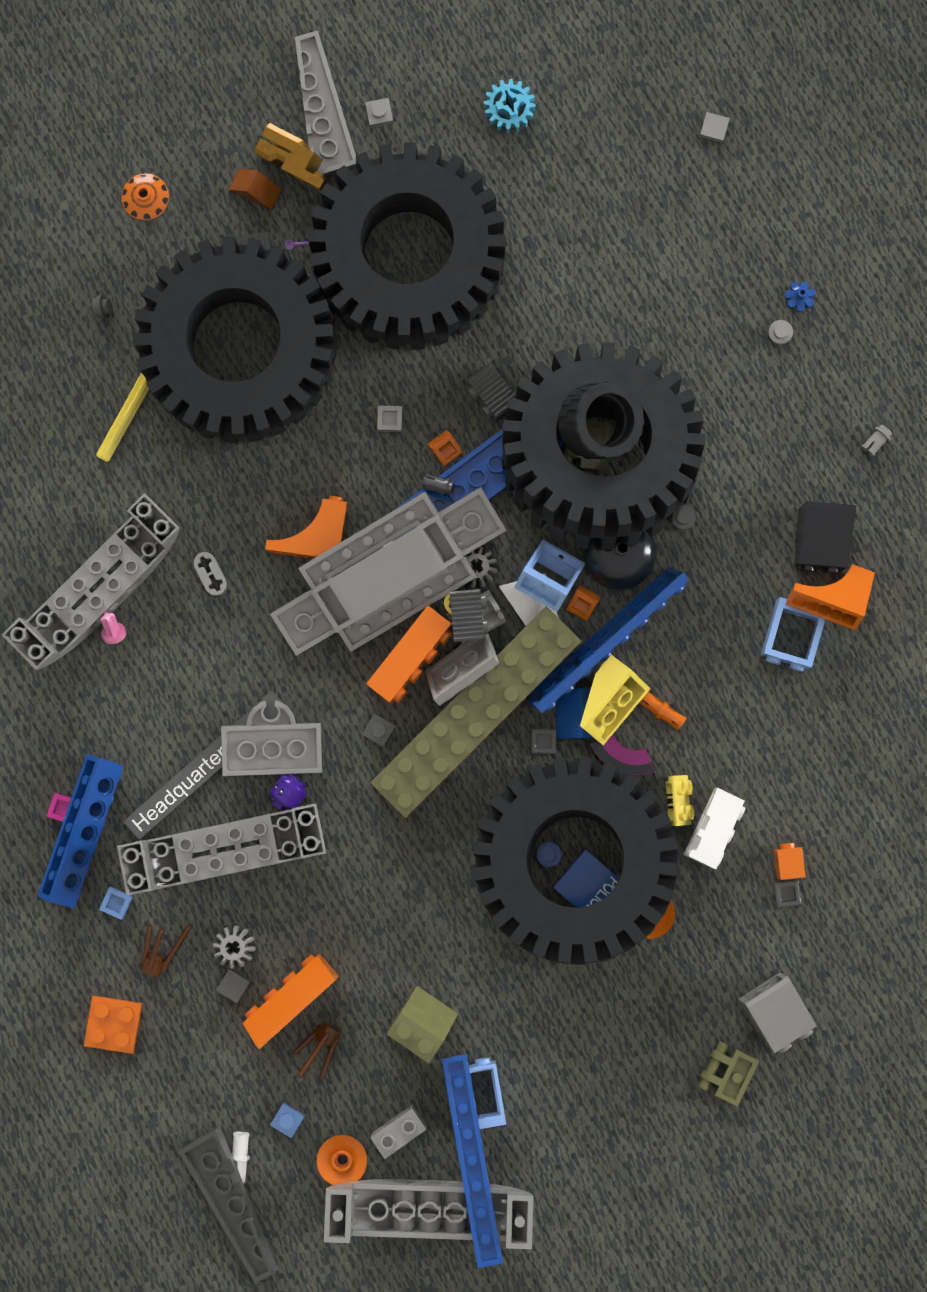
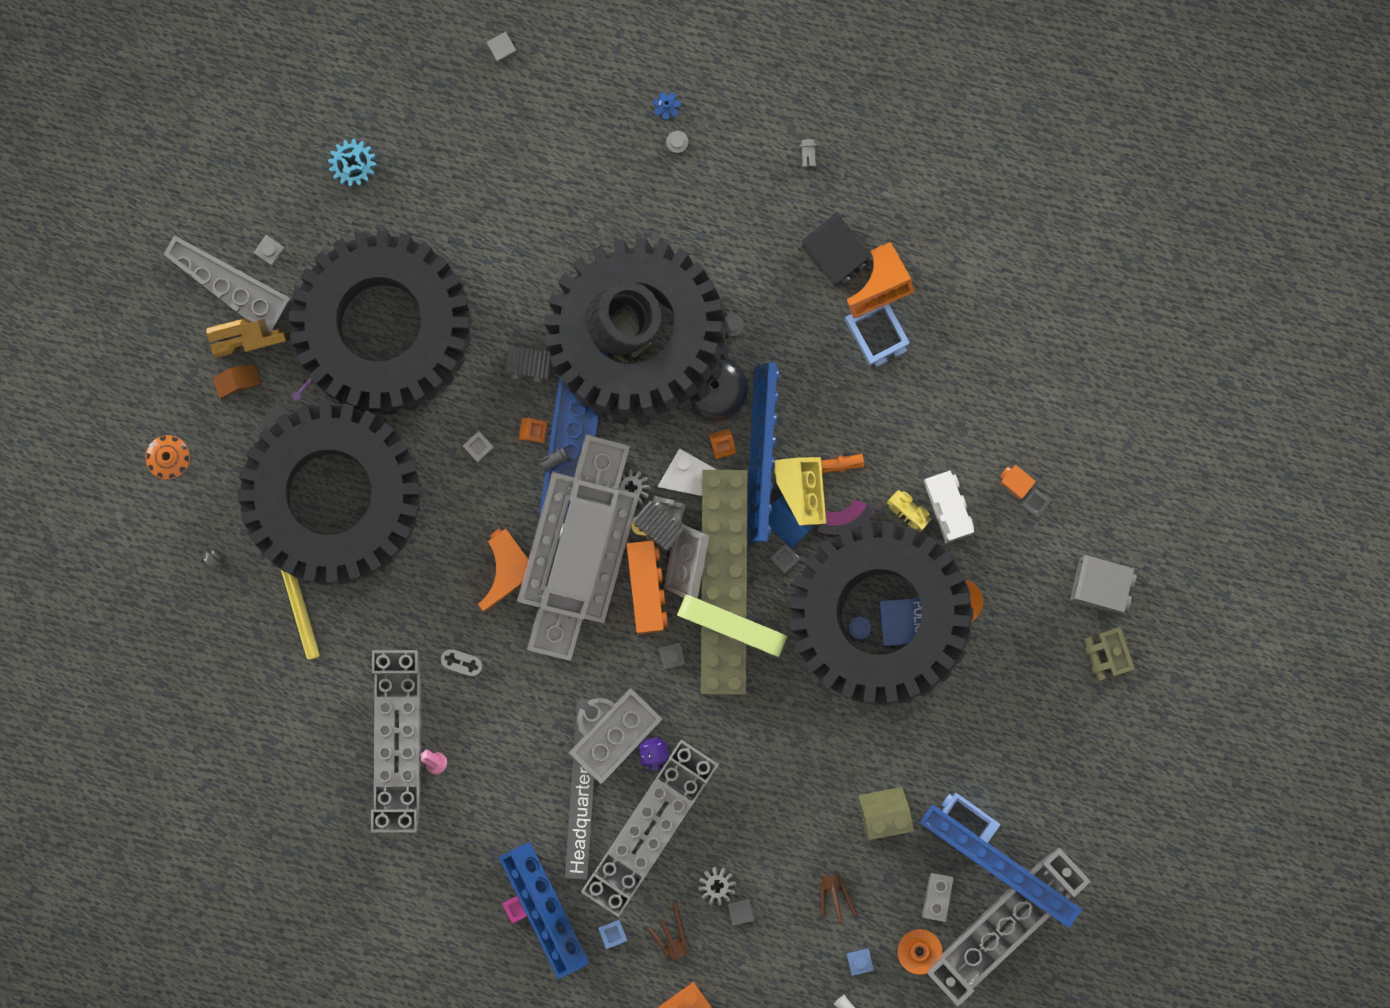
camera: 50 degrees left, 0 degrees up
(290, 1000) = (786, 883): orange slope -> none
(447, 753) = (732, 625): none -> yellowish green beam
(543, 588) = (689, 460): light blue window -> none

